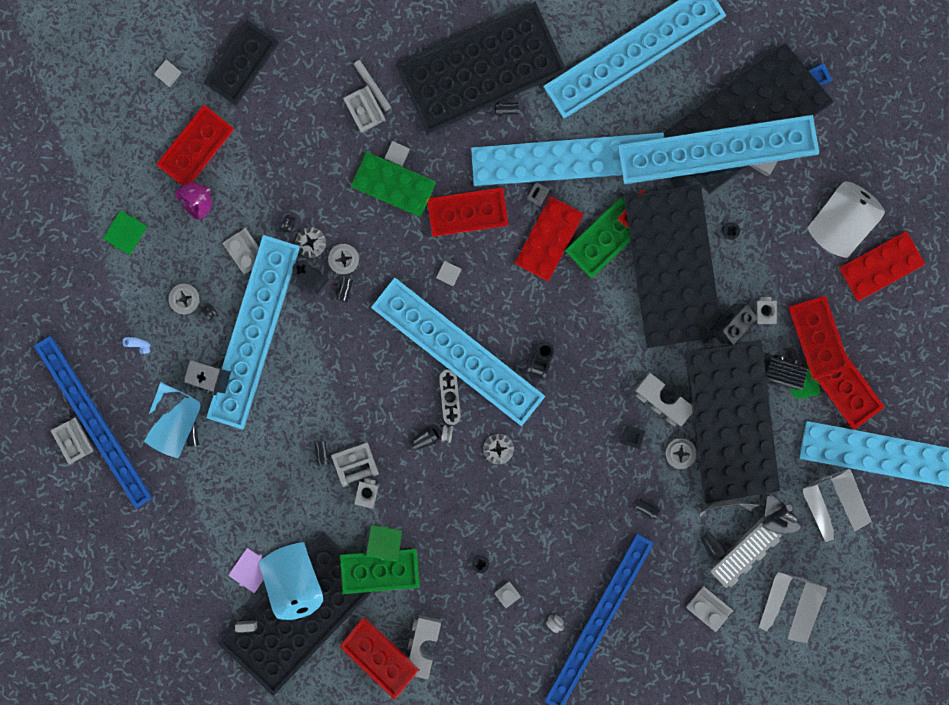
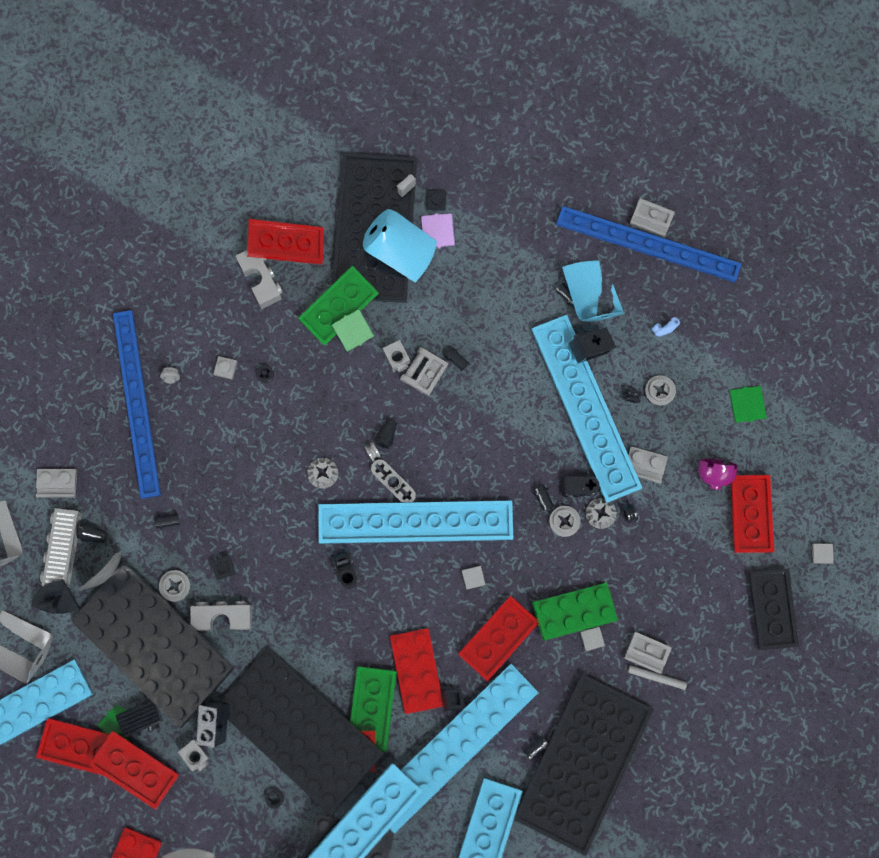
camera: 140 degrees right, 10 degrees down
(231, 595) = (436, 200): none -> black plate

